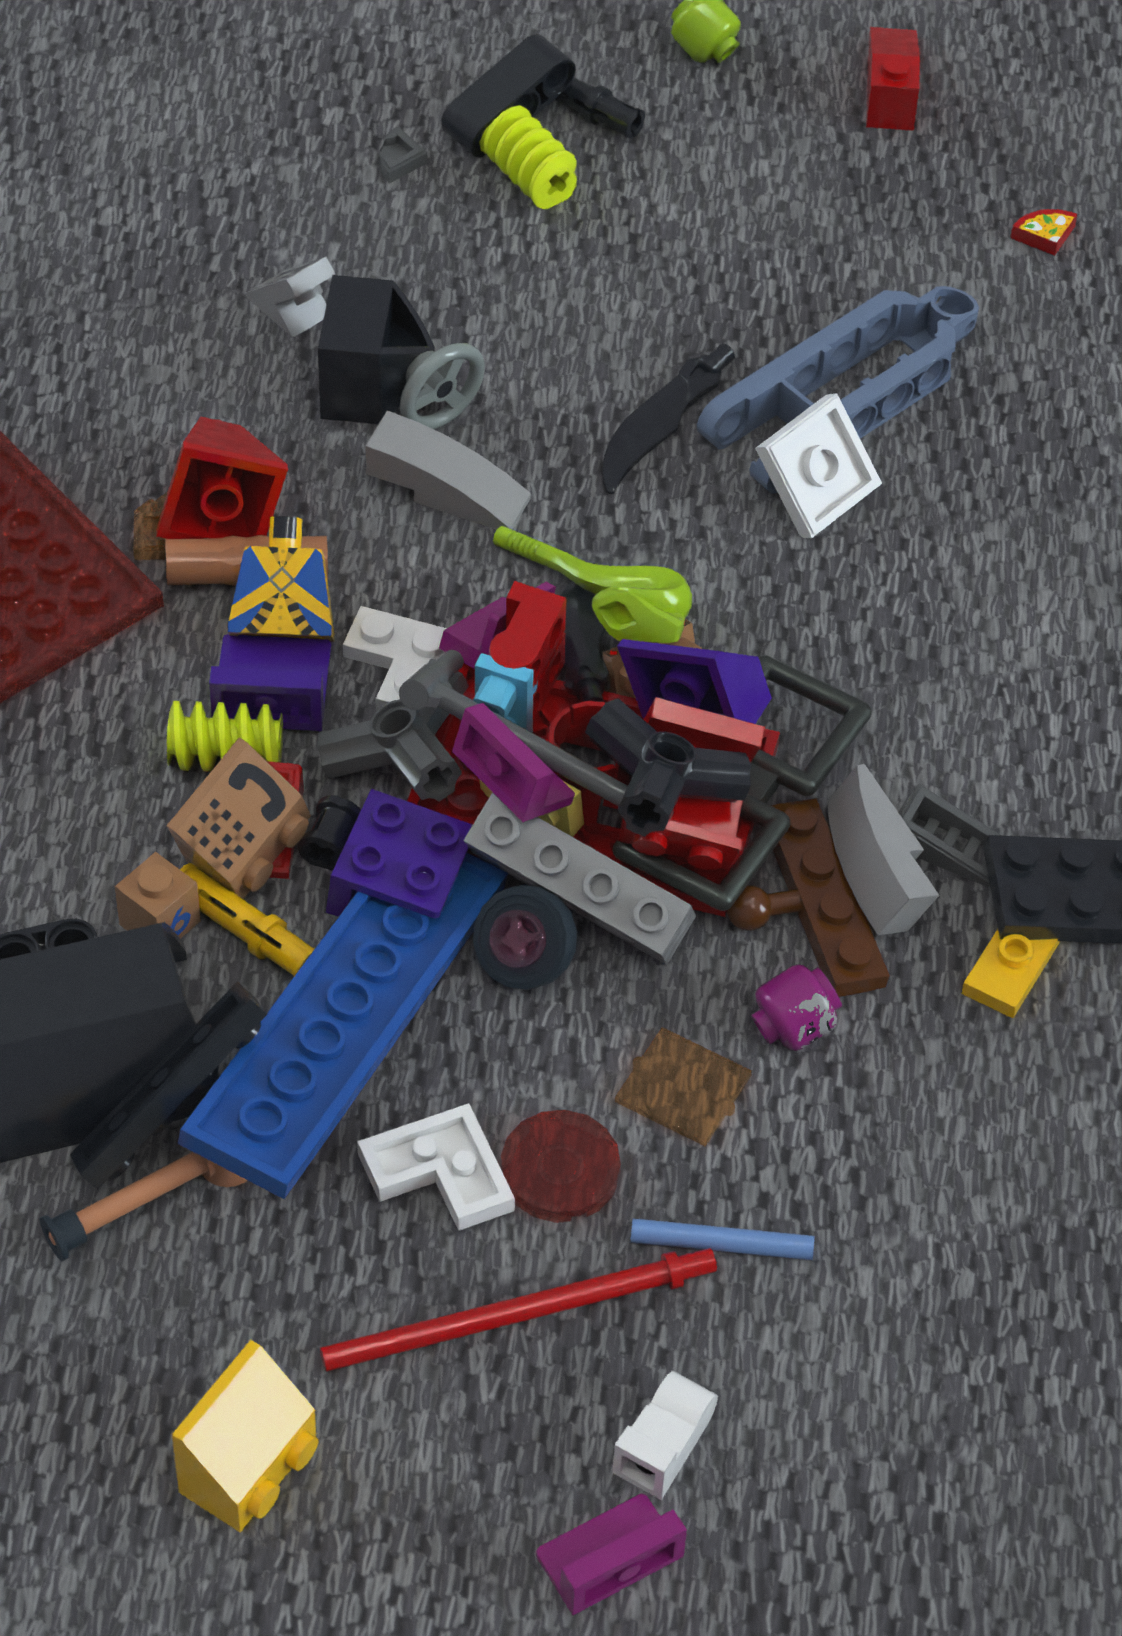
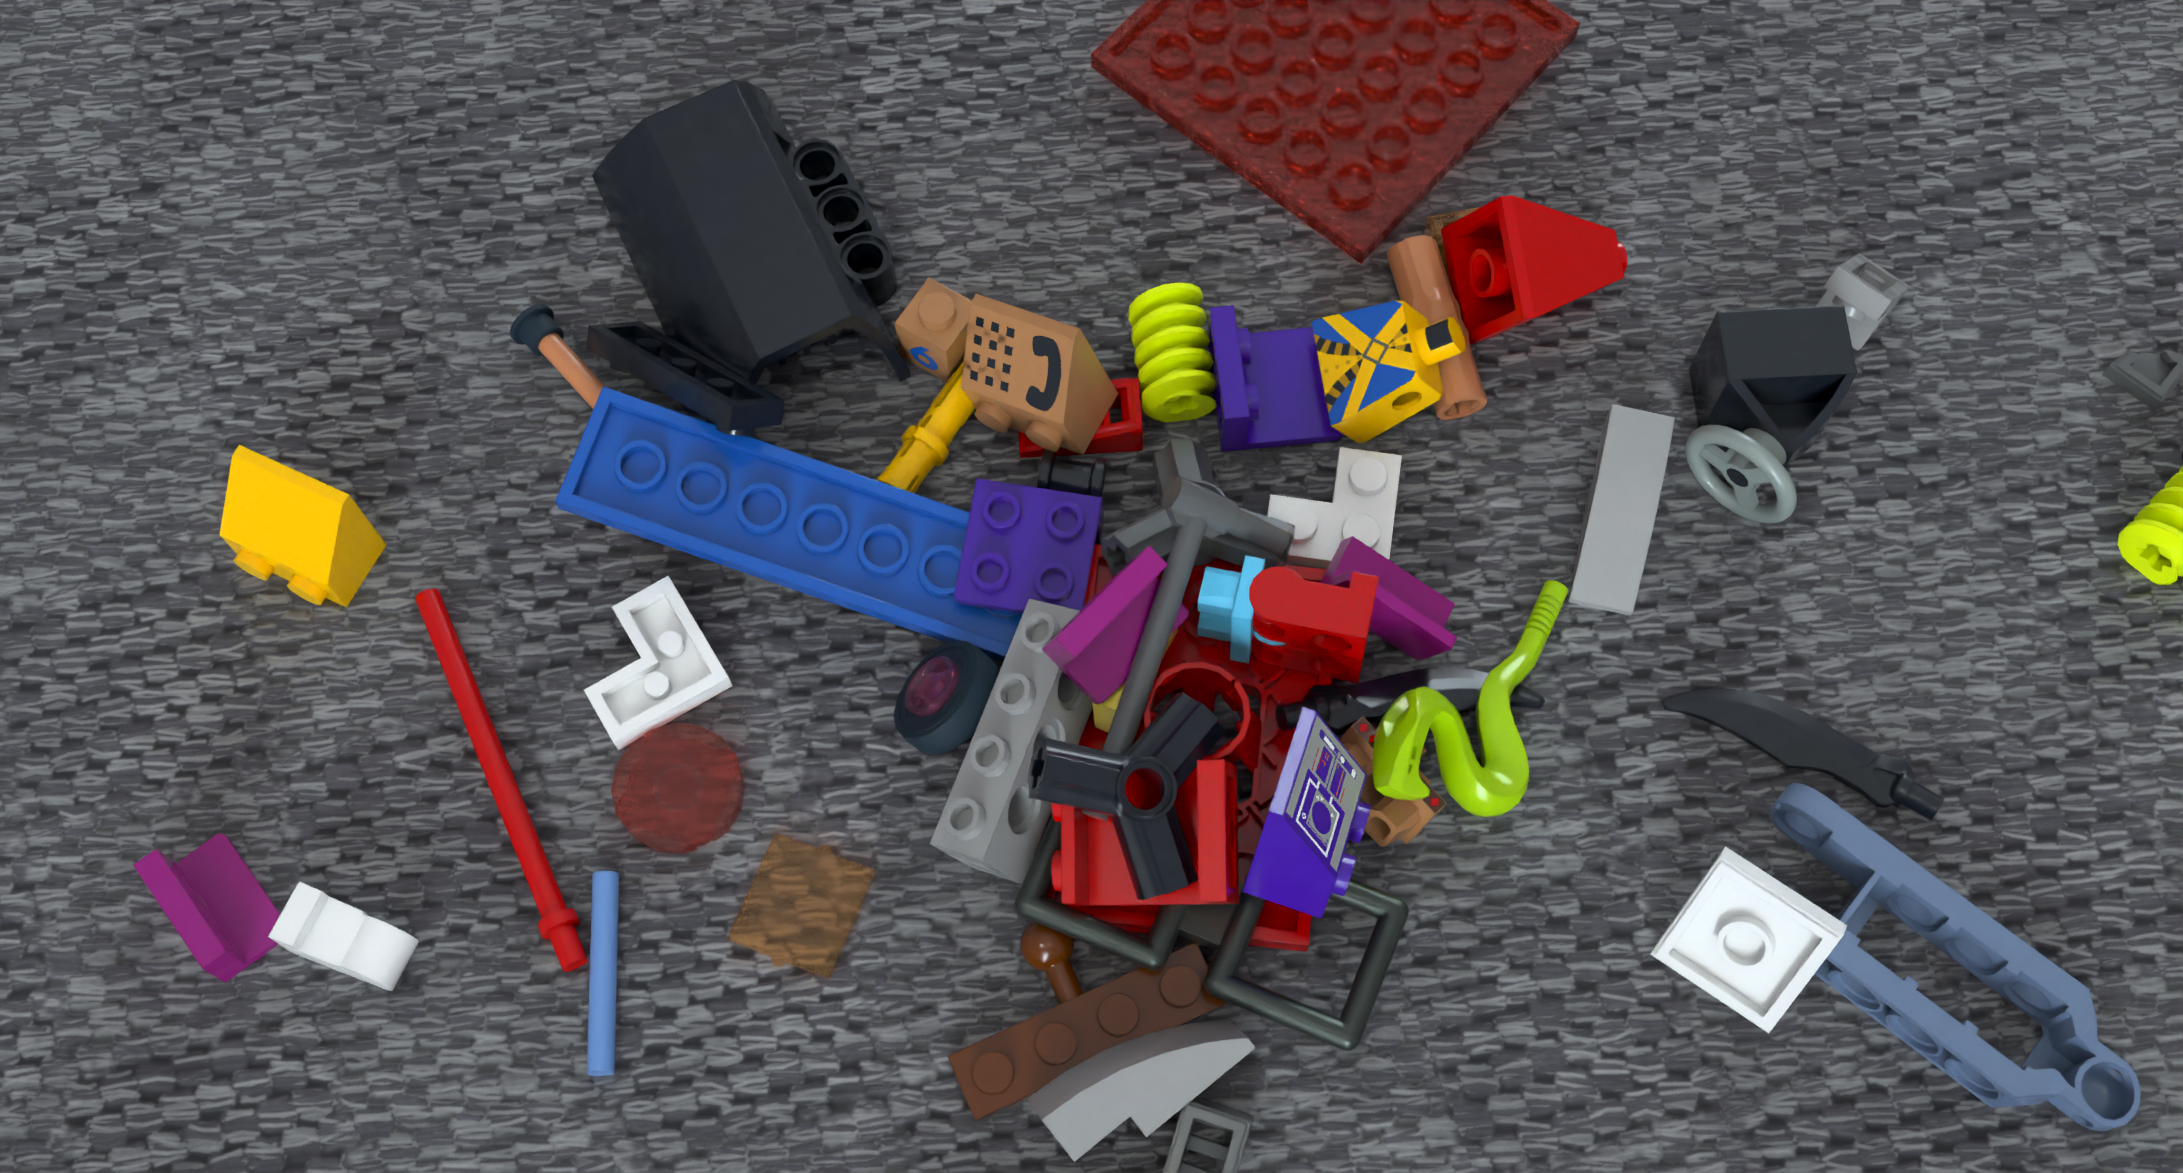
camera: 85 degrees right, 15 degrees up
(796, 1007) = (906, 1013): magenta head -> none

